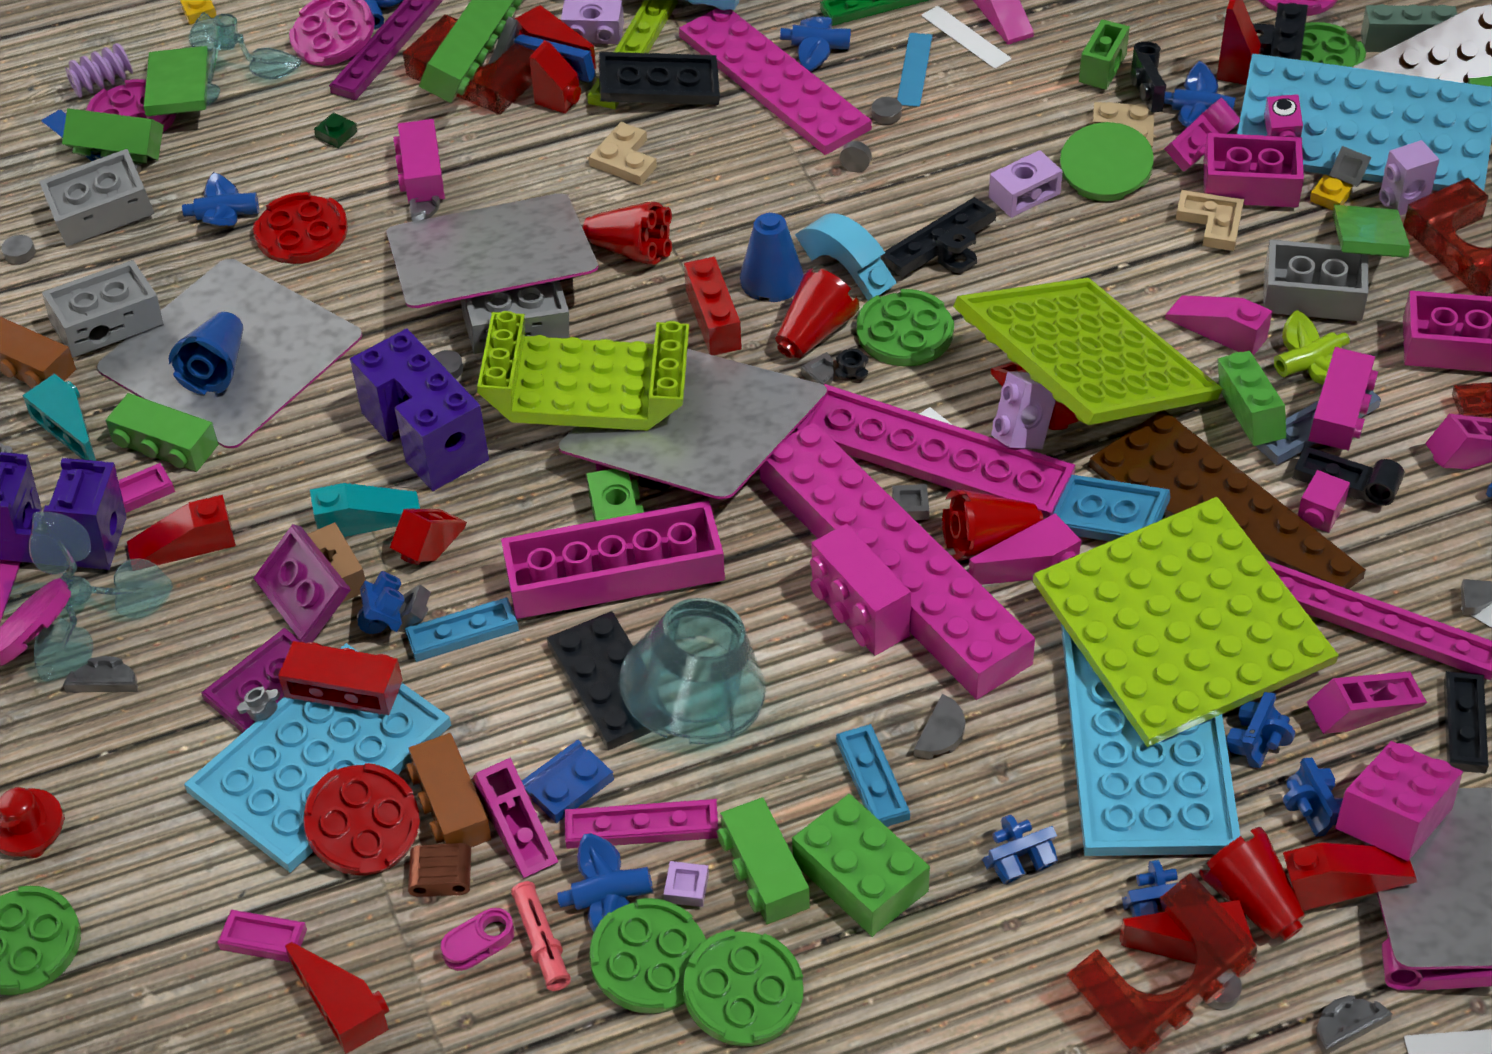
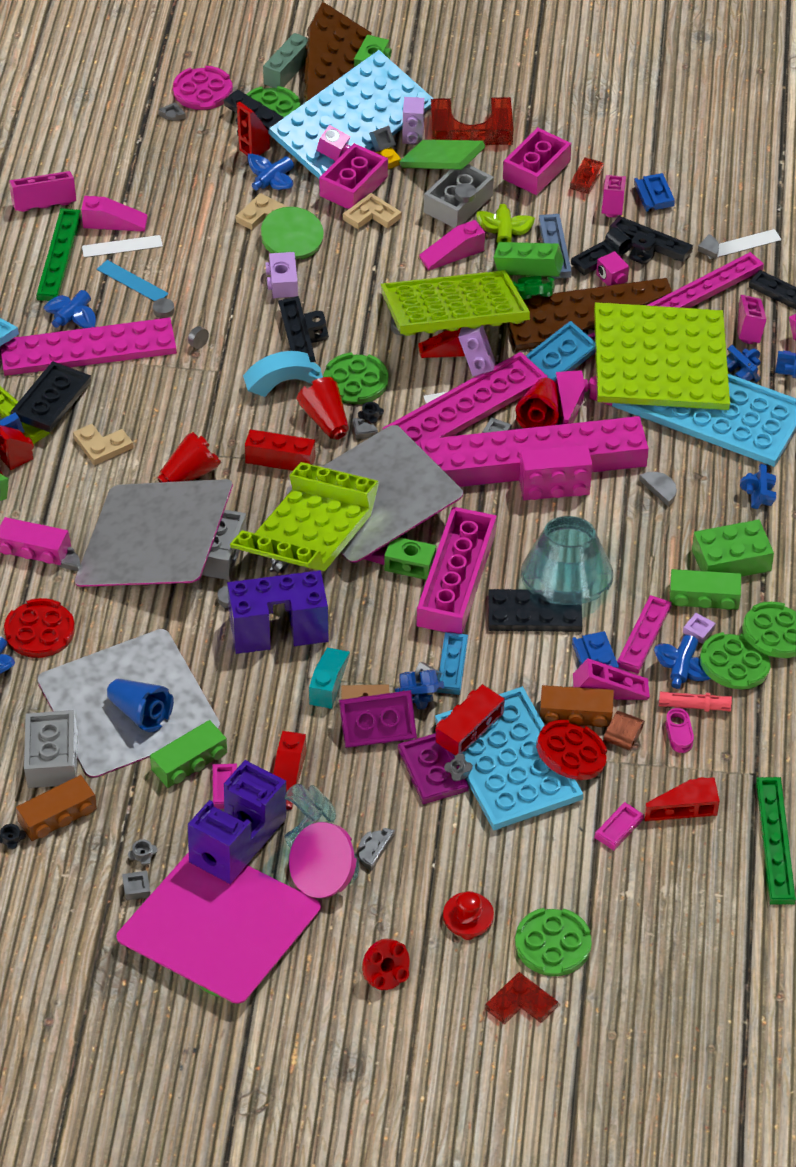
camera: 65 degrees left, 0 degrees up
(58, 410) = (134, 800): teal slope -> none
(425, 534) = (373, 651): red slope -> none
(771, 261) = (266, 407): blue cone -> none
(872, 775) = (670, 526): dark azure tile -> none
(1104, 54) = (205, 190): bright green brick -> none
(1146, 75) = (239, 182): black plate -> none
(1192, 141) = (298, 175): dark pink plate -> none
(1212, 430) = (534, 285): none -> green plate
(1303, 275) = (465, 193): none -> flat silver tile
(1343, 399) = (556, 225): dark pink brick -> none
(1422, 517) = (648, 241): none -> black plate

